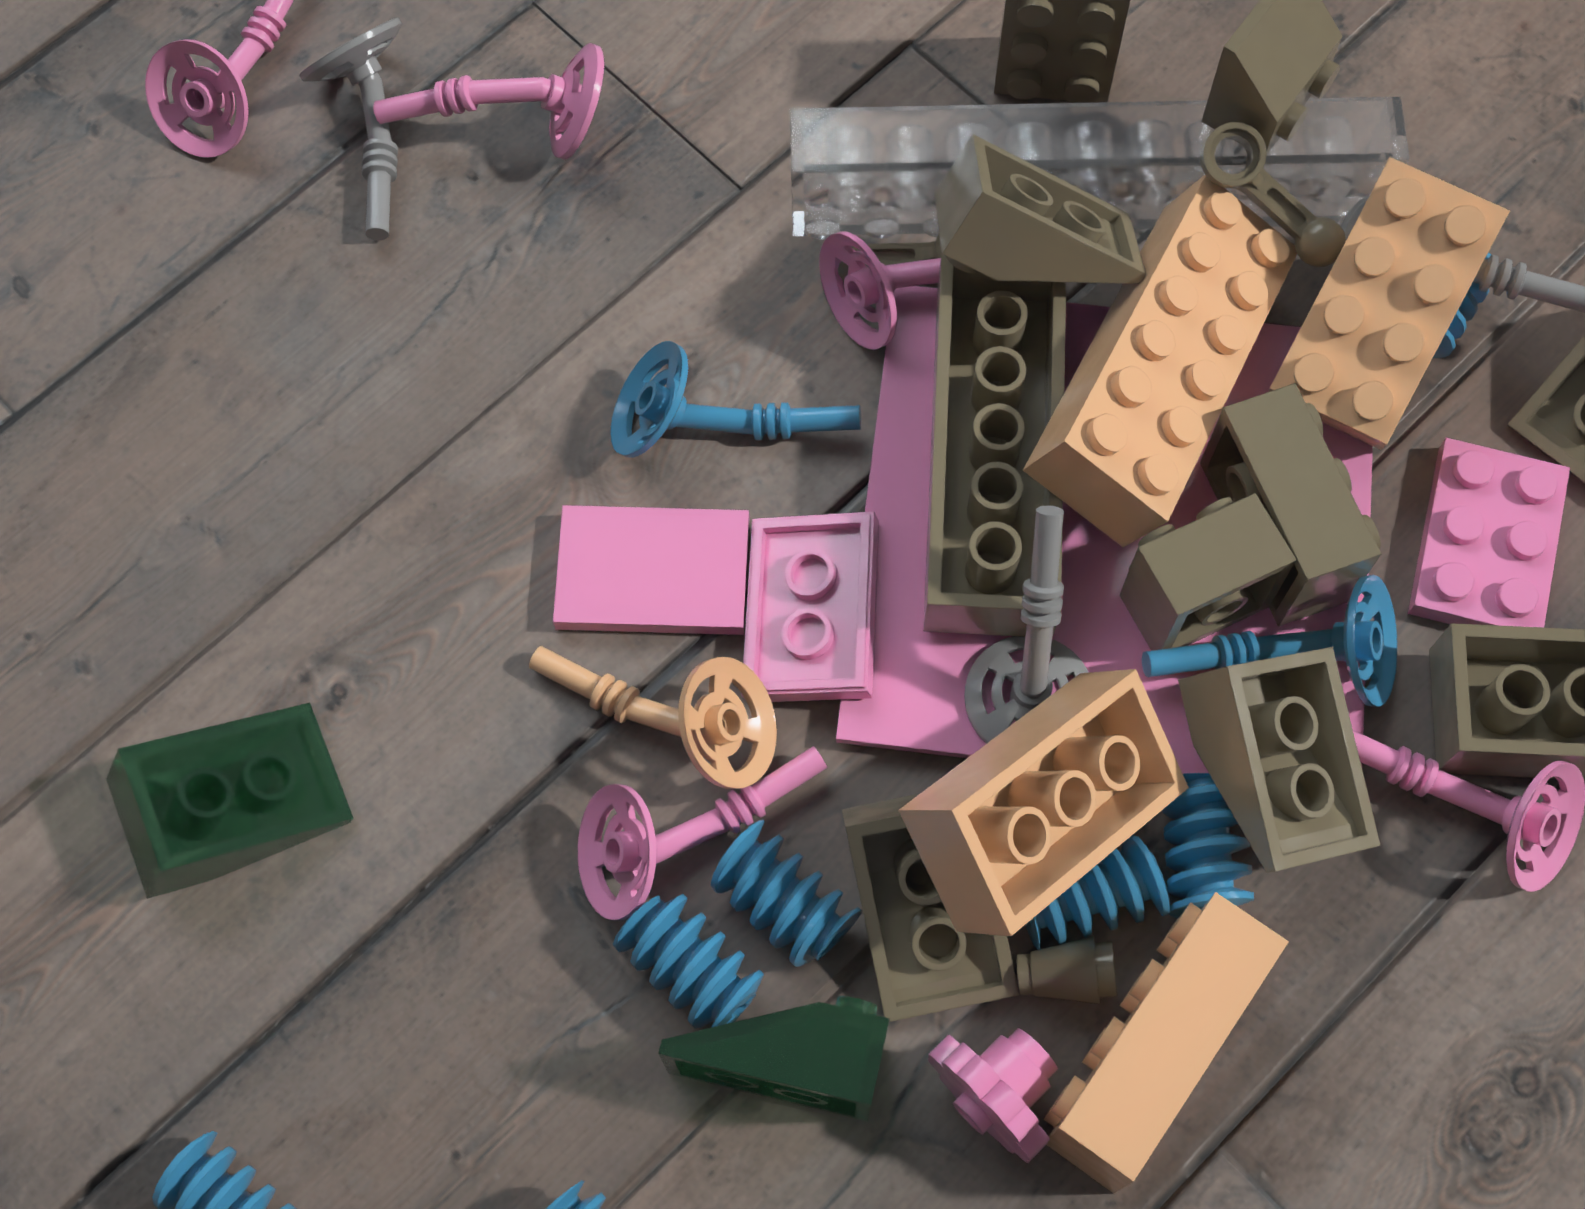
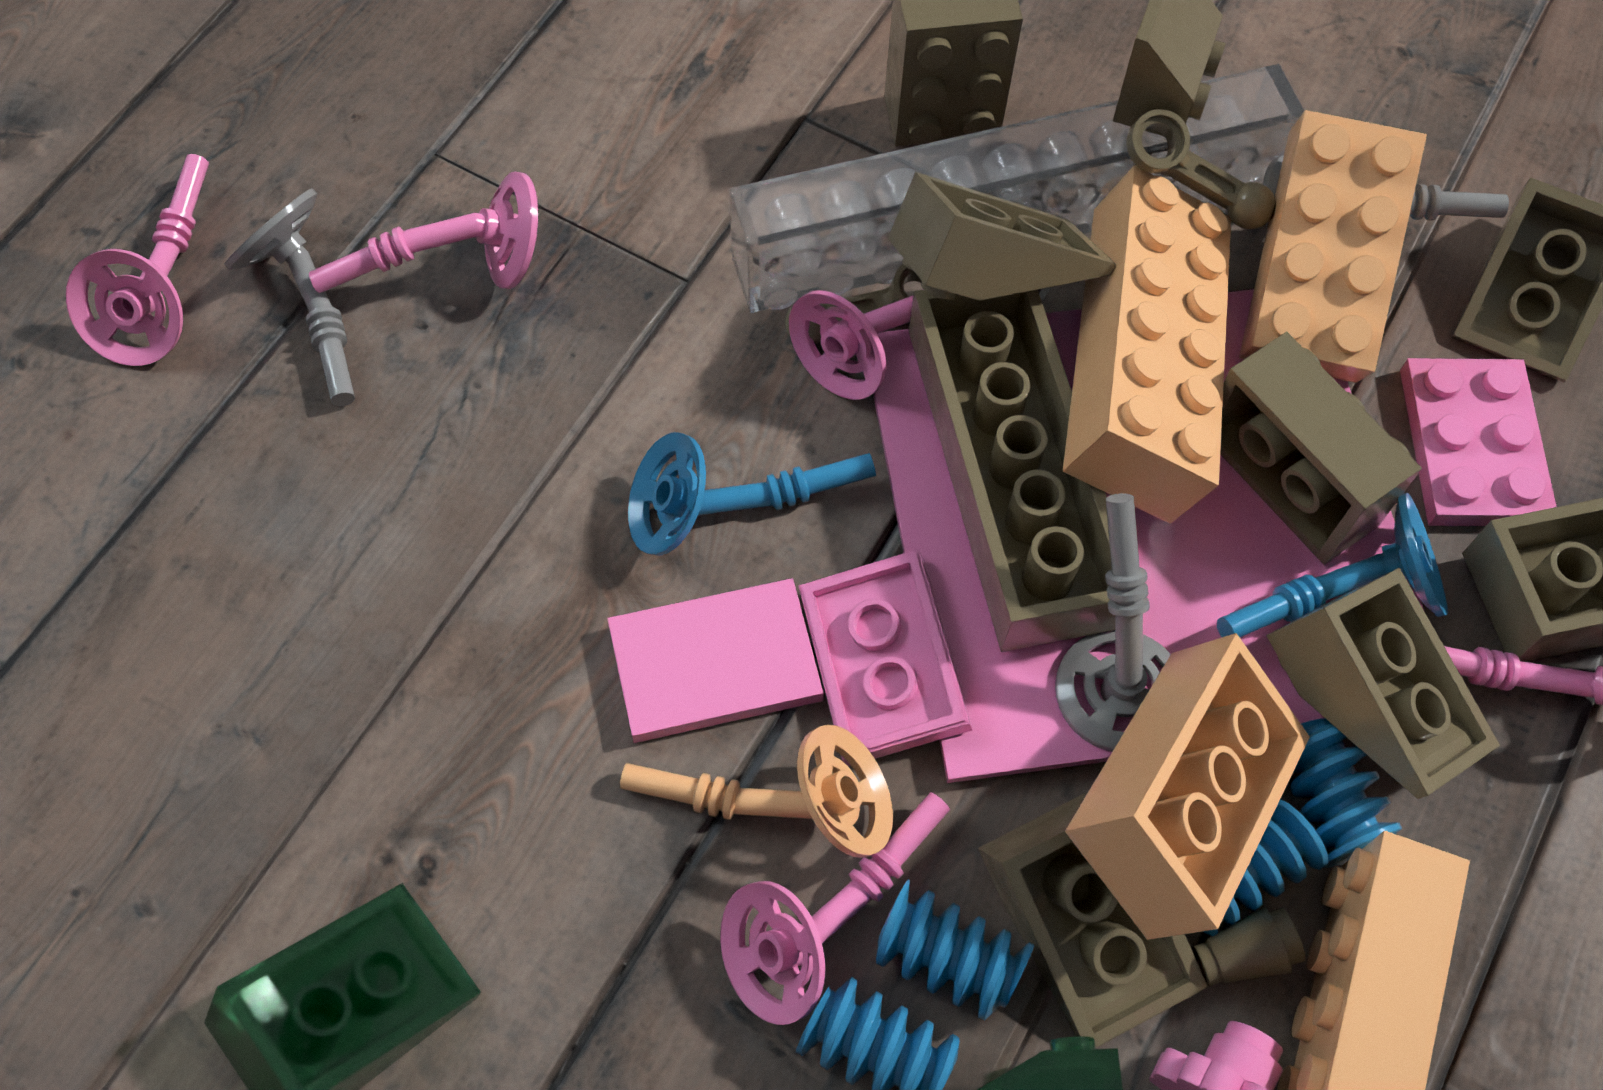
camera: 20 degrees left, 5 degrees down
(1206, 573) = (1255, 528): dark tan brick -> none

